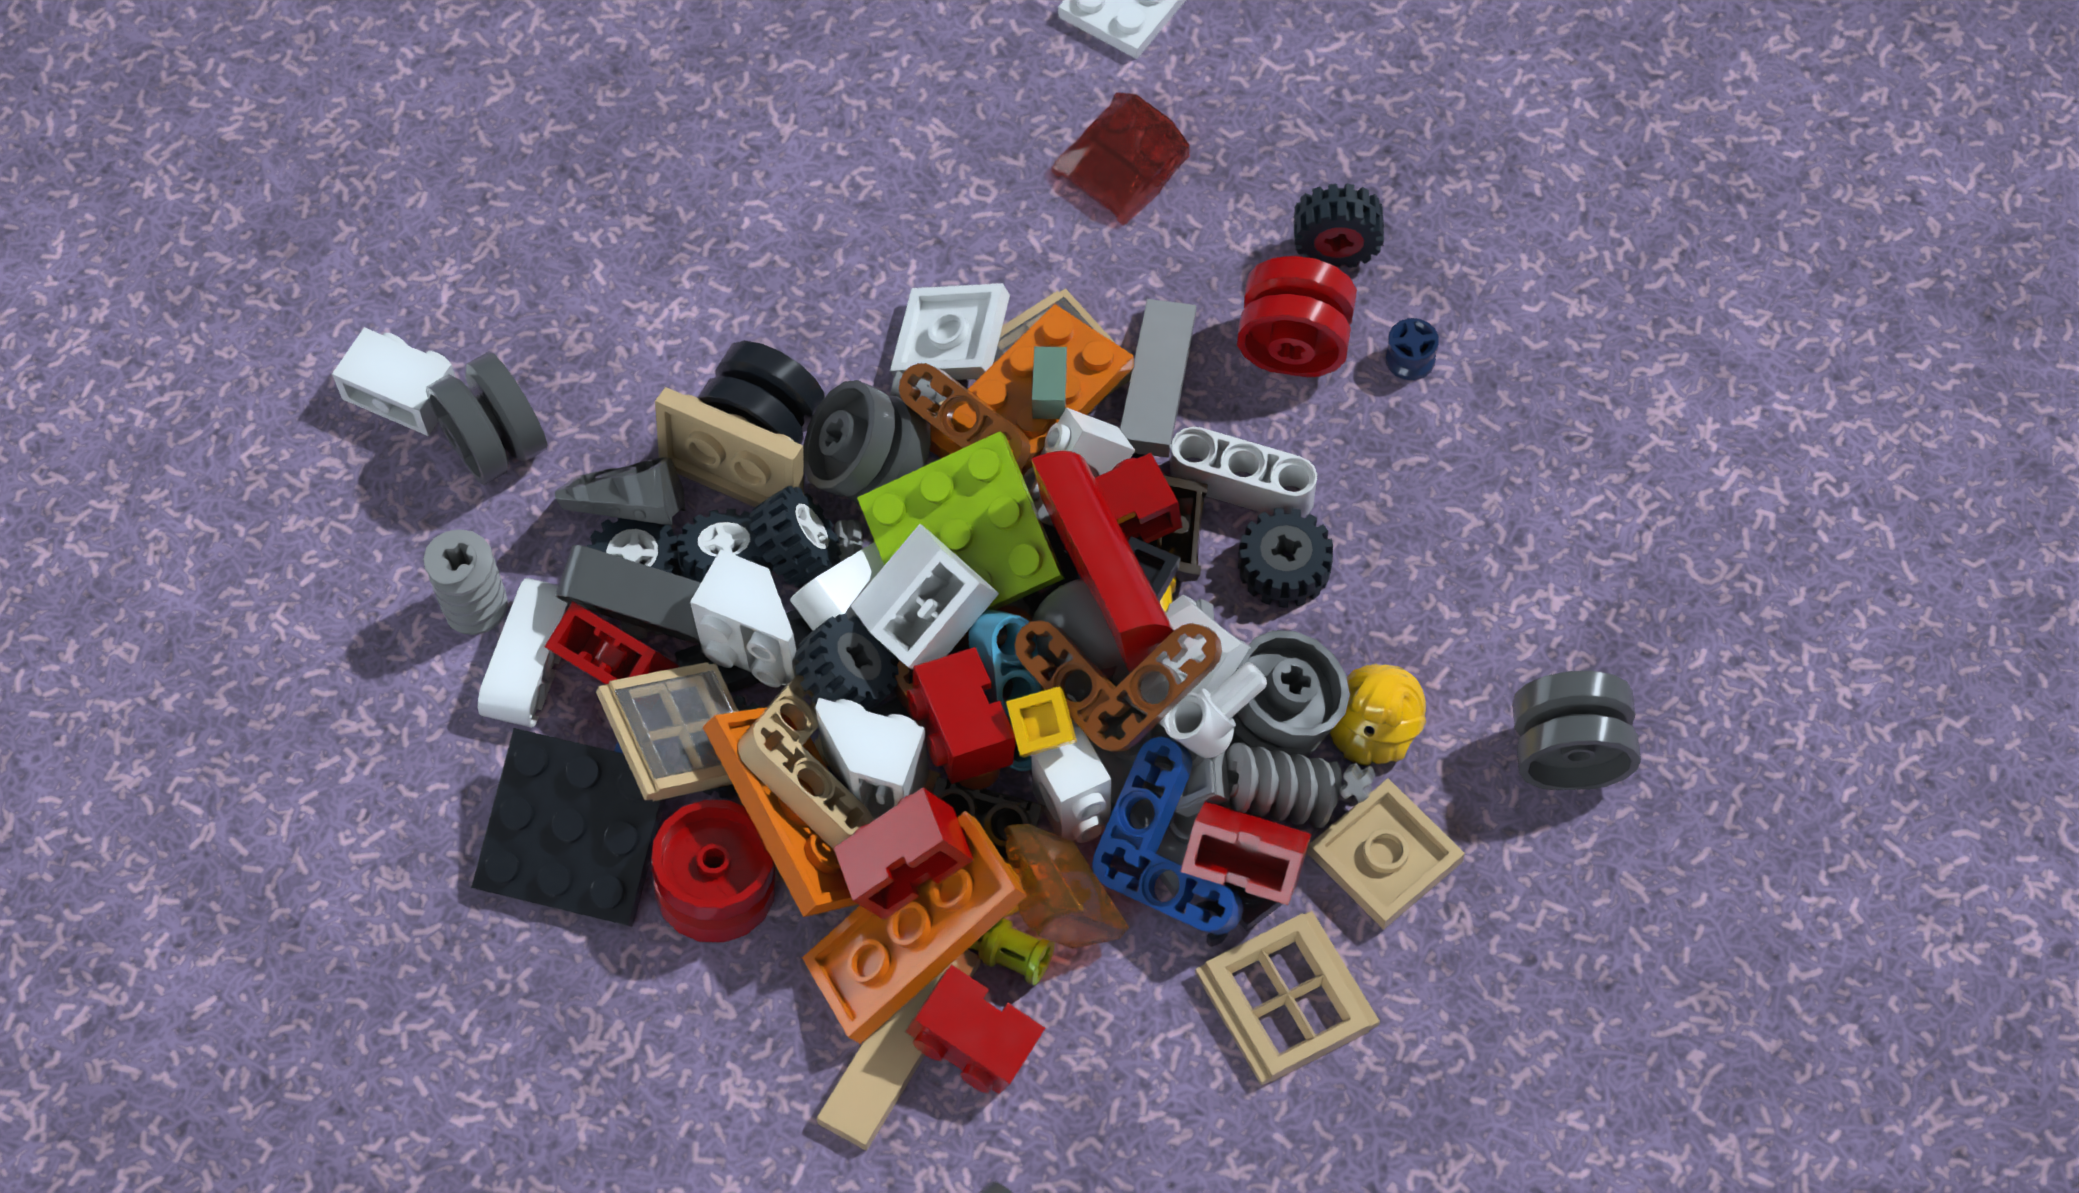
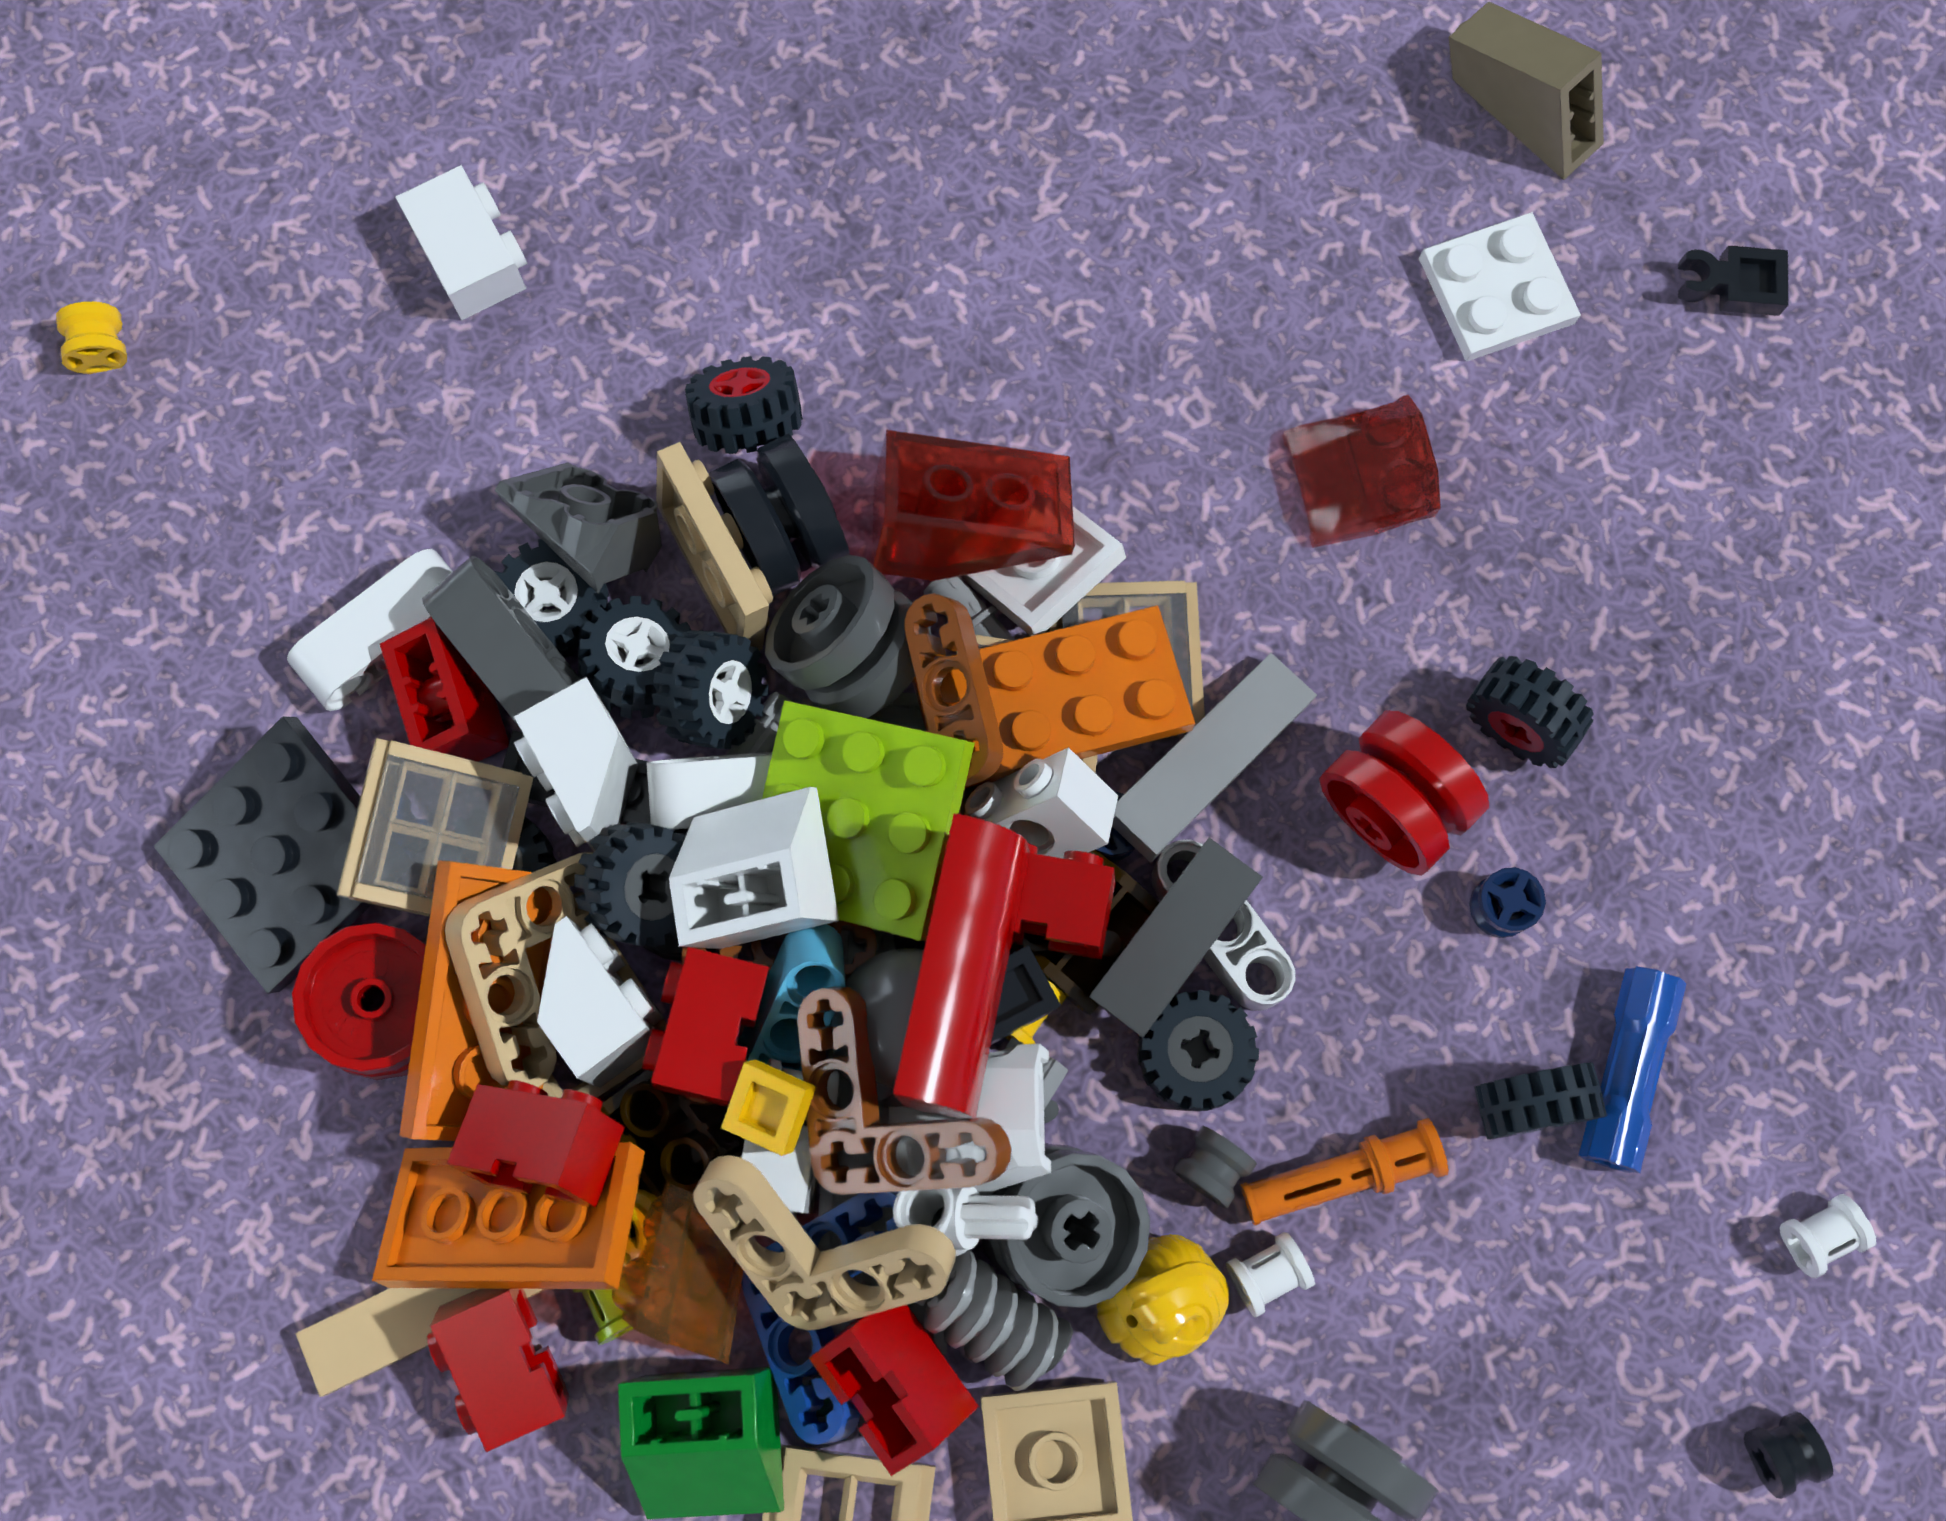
camera: 30 degrees right, 15 degrees up
(168, 599) = (91, 337): none -> yellow wheel
(466, 581) = (358, 515): light grey piece -> none
(486, 418) = (502, 347): dark grey wheel -> none
(679, 355) = (743, 404): none -> black wheel
(880, 324) = (967, 507): none -> clear red slope
(1049, 382) = (1074, 703): sand green piece -> none
(1137, 812) = (743, 1204): none -> tan beam
(1150, 985) = (703, 1442): none -> green slope
(1219, 487) = (1176, 937): none -> dark grey tile
(1350, 615) = (1214, 1166): none -> dark grey wheel
(1357, 782) = (1075, 1374): light grey axle -> none
(1435, 654) = (1270, 1274): none -> white bush
(1447, 547) = (1375, 1165): none -> orange pin
(1520, 441) = (1540, 1100): none -> black wheel
(1578, 425) = (1644, 1022): none -> blue axle
(1754, 412) = (1828, 1235): none -> white bush
(1828, 548) = (1788, 1454): none -> black wheel

